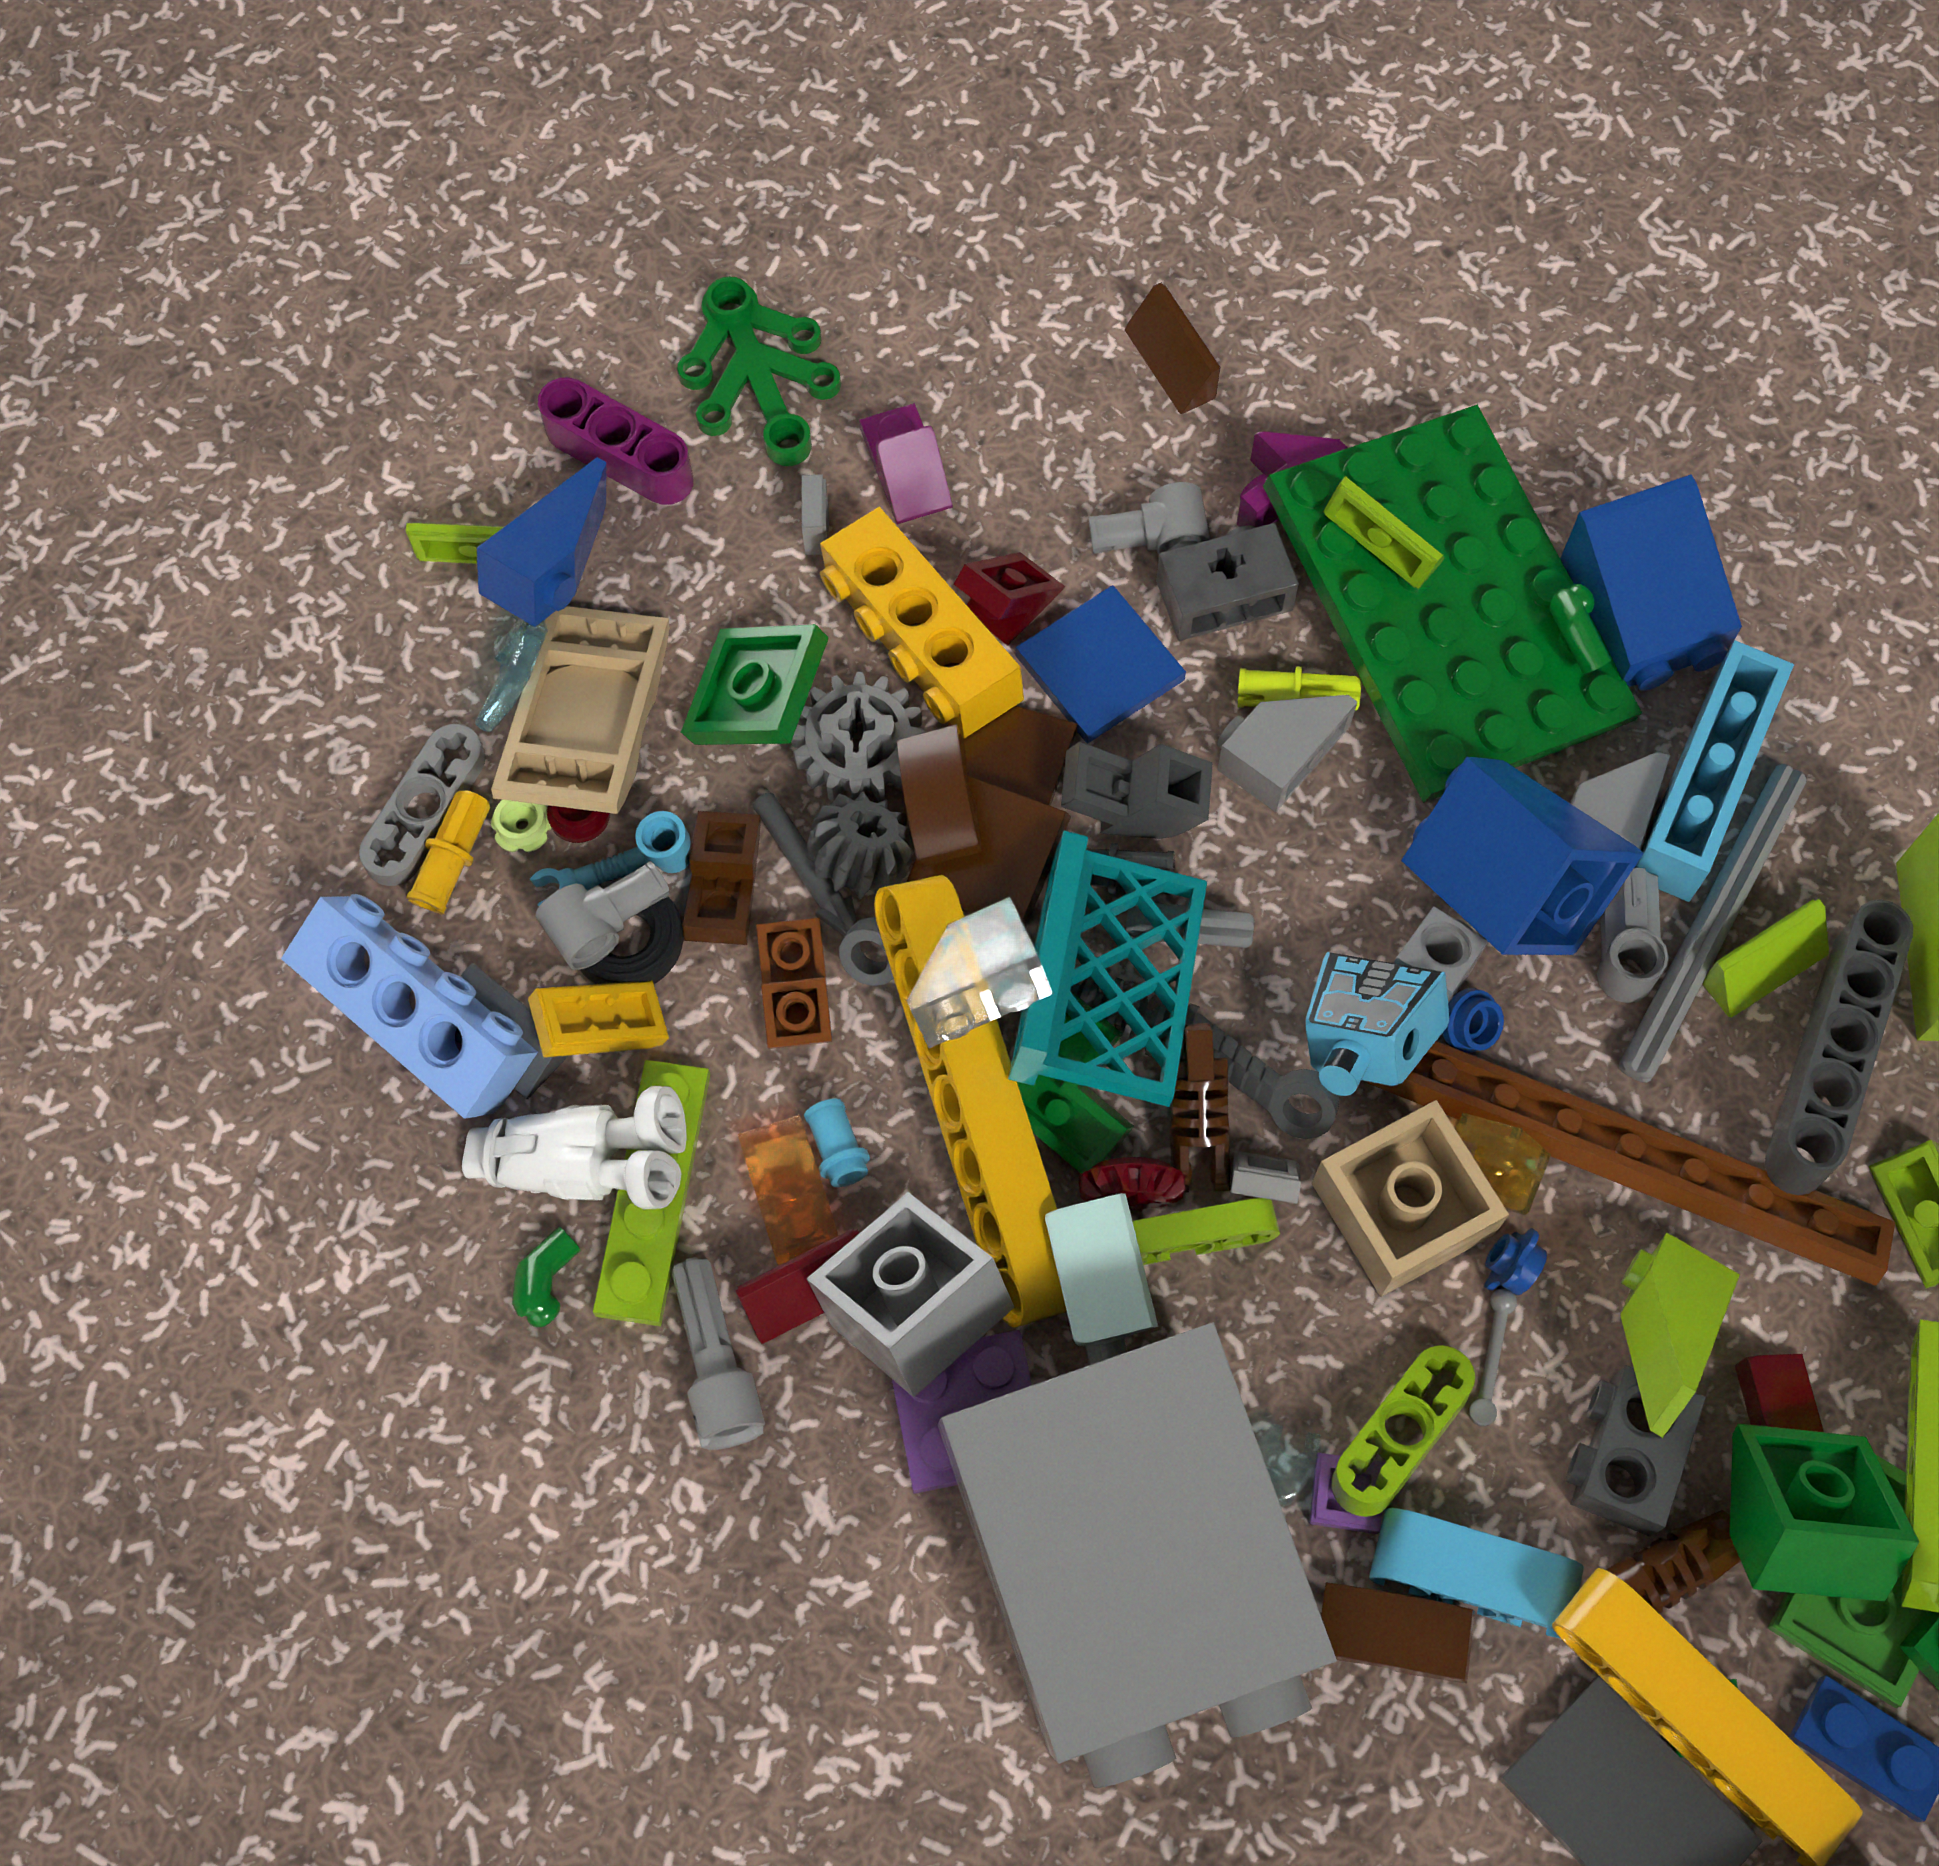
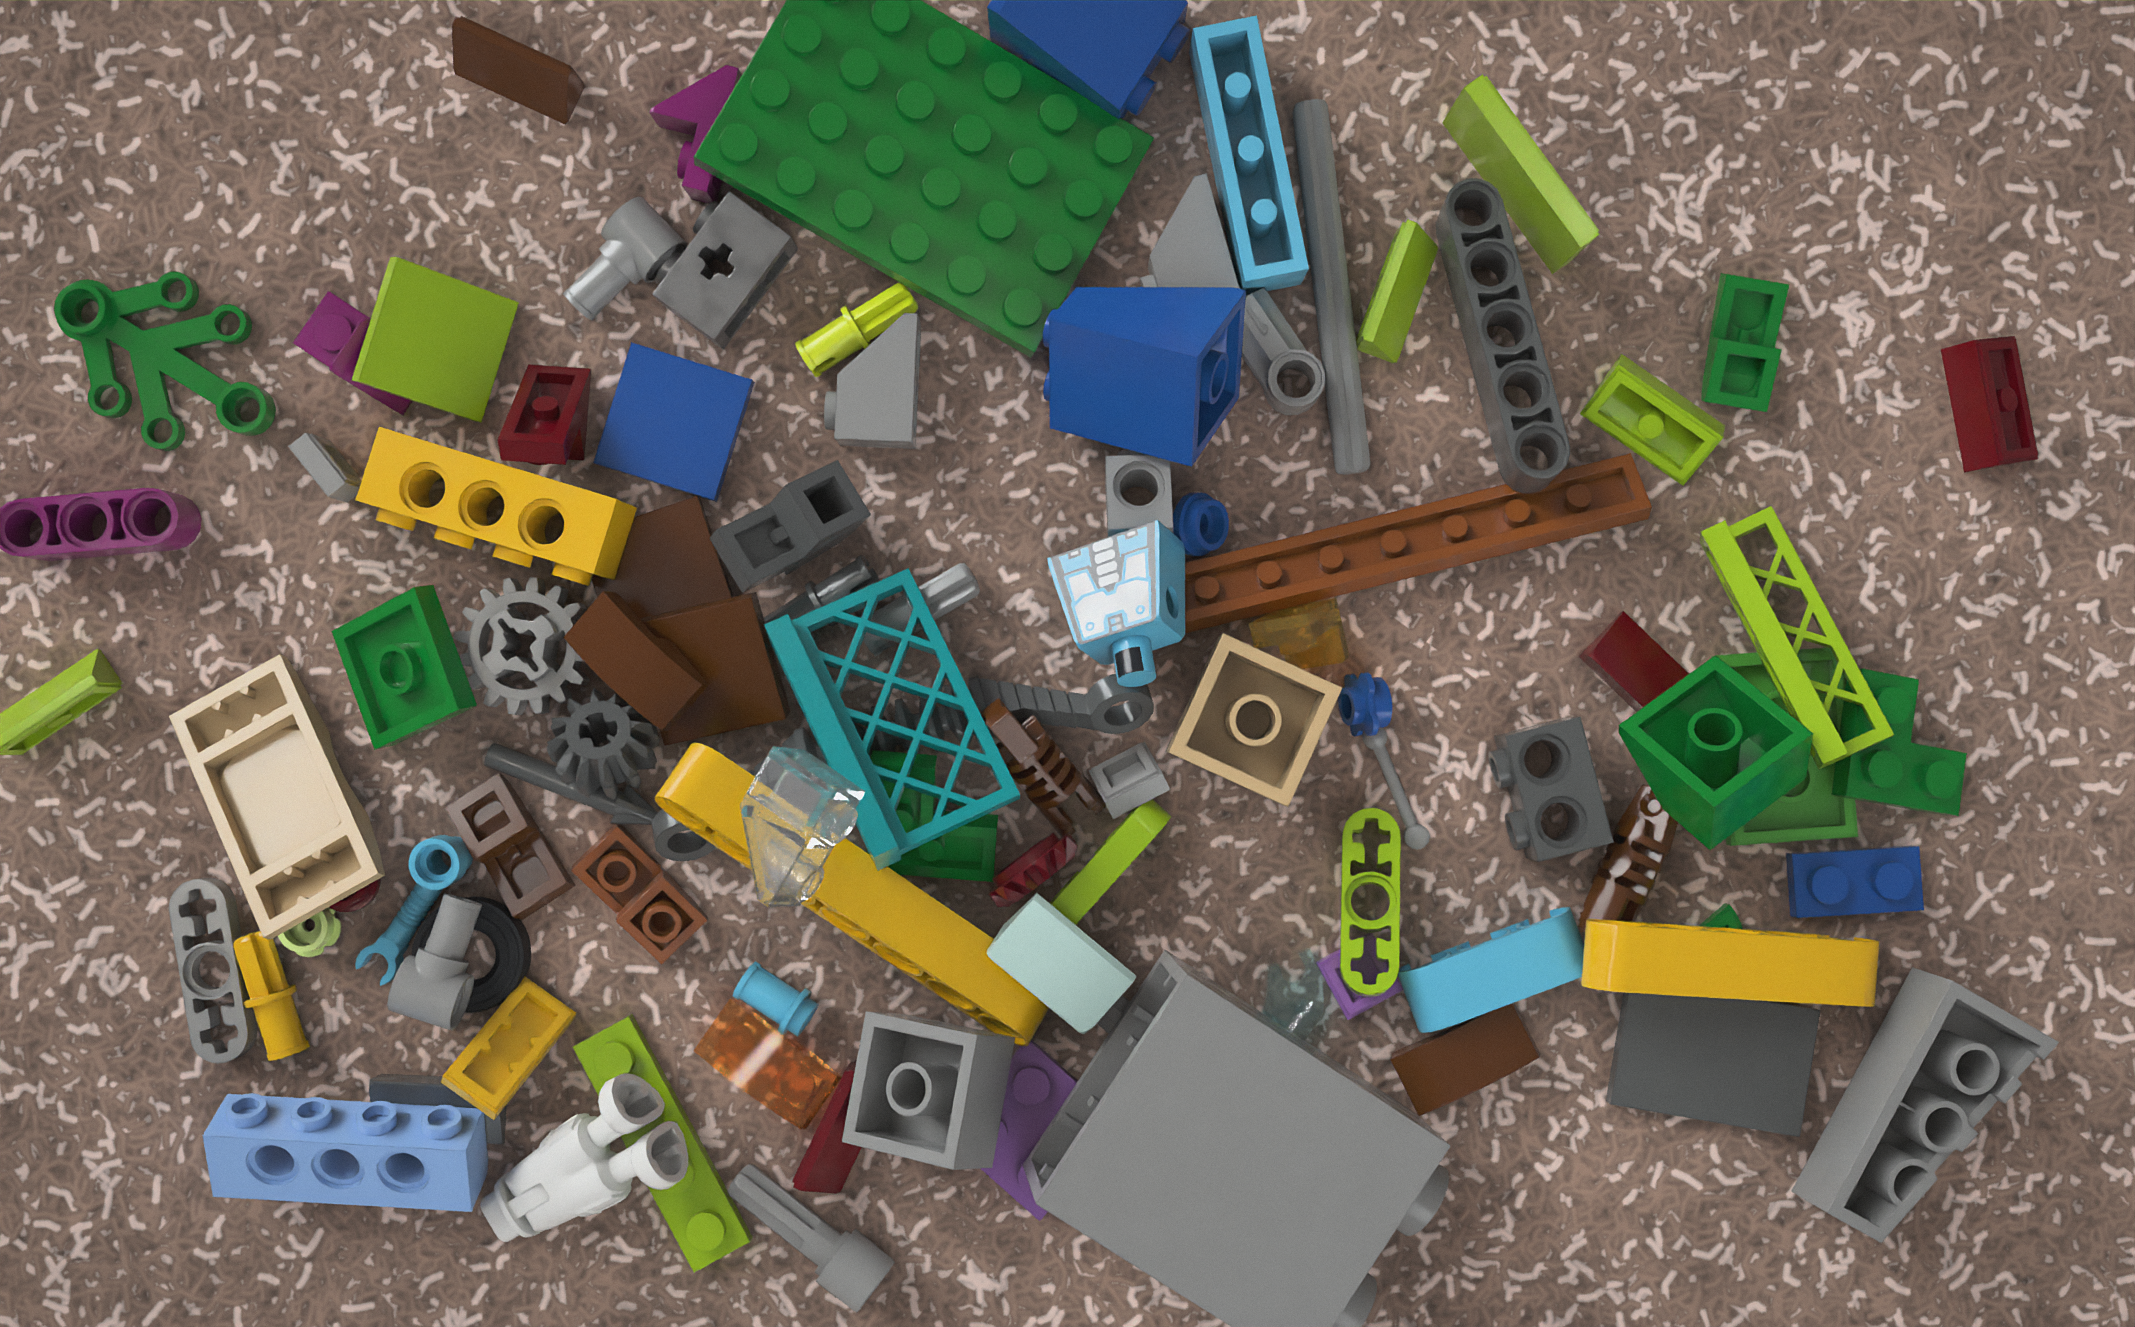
camera: 35 degrees left, 20 degrees up
(518, 657) = (179, 783): clear light blue piece -> none
(535, 1275) = (626, 1278): green arm -> none
(542, 553) = (126, 687): blue slope -> none
(968, 482) = (435, 340): none -> lime tile
(1382, 533) = (833, 143): lime slope -> none
(1571, 613) = (1054, 111): green arm -> none
(1673, 1323) = (1522, 679): lime slope -> none

